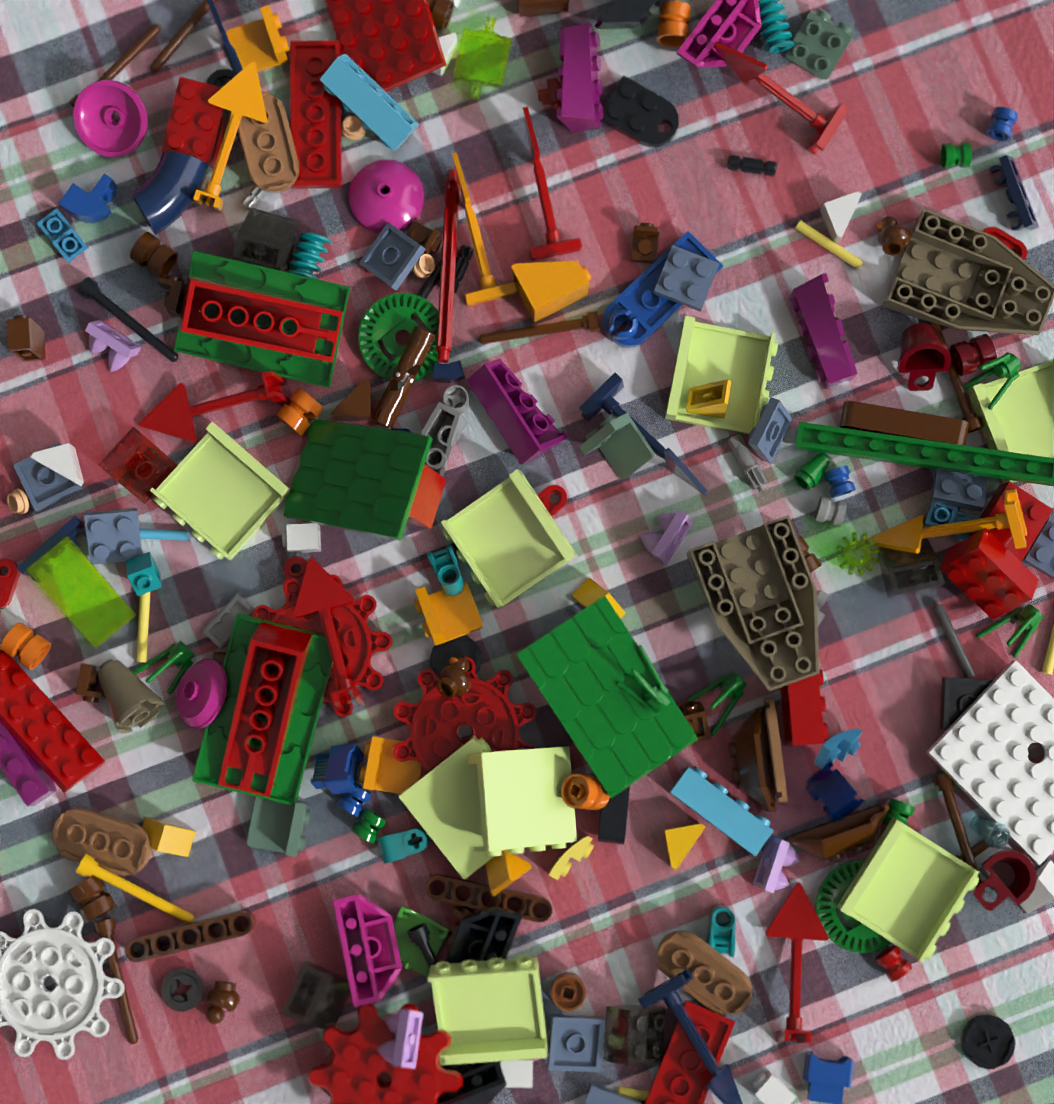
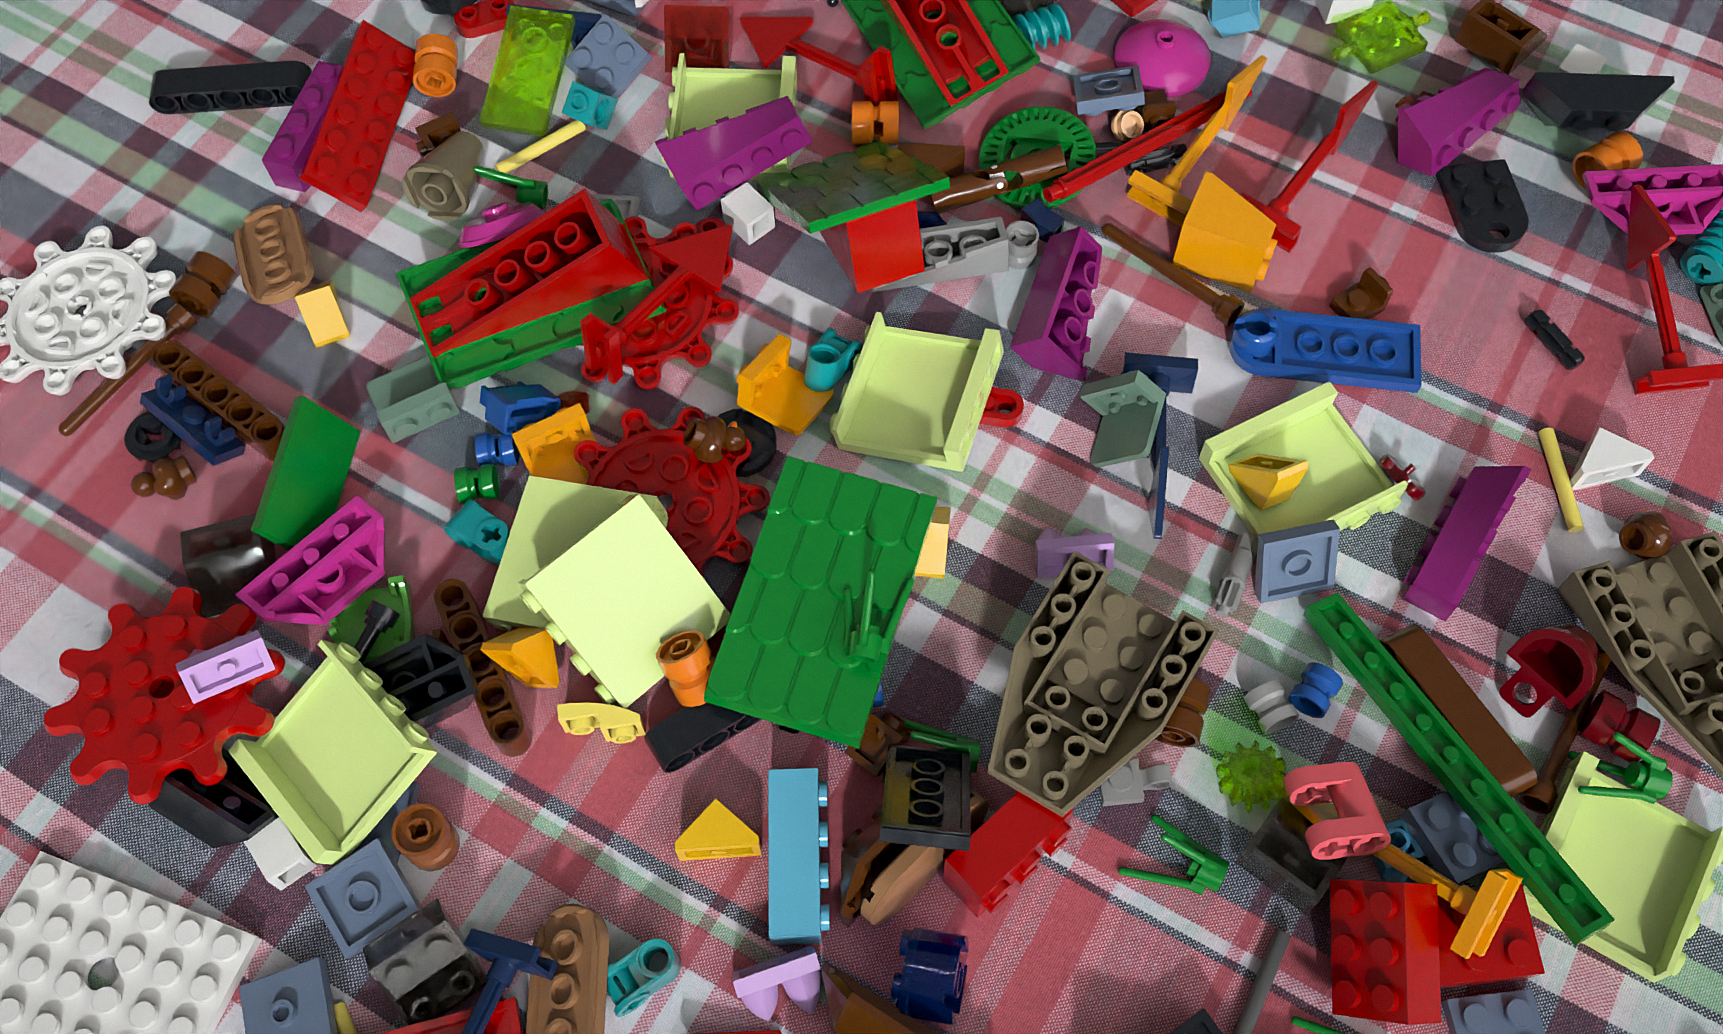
camera: 55 degrees right, 20 degrees down
(90, 867) = (233, 251): yellow piece -> none
(161, 534) = (647, 104): medium azure bar -> none
(194, 963) = (192, 422): none -> dark blue plate
(263, 516) = (733, 150): none -> magenta wedge
(294, 920) = (305, 474): none -> green tile
(358, 734) = (573, 397): none -> clear red tile
(686, 278) = (1369, 356): sand blue plate -> none
(757, 730) = (926, 798): none -> black tile
(763, 326) = (1399, 474): none -> dark red piece
(811, 472) = (1295, 651): green cone -> none
(839, 747) = (998, 935): dark azure slope -> none
(880, 617) = (1204, 866): none -> green plant
(917, 525) = (1359, 824): none -> coral connector

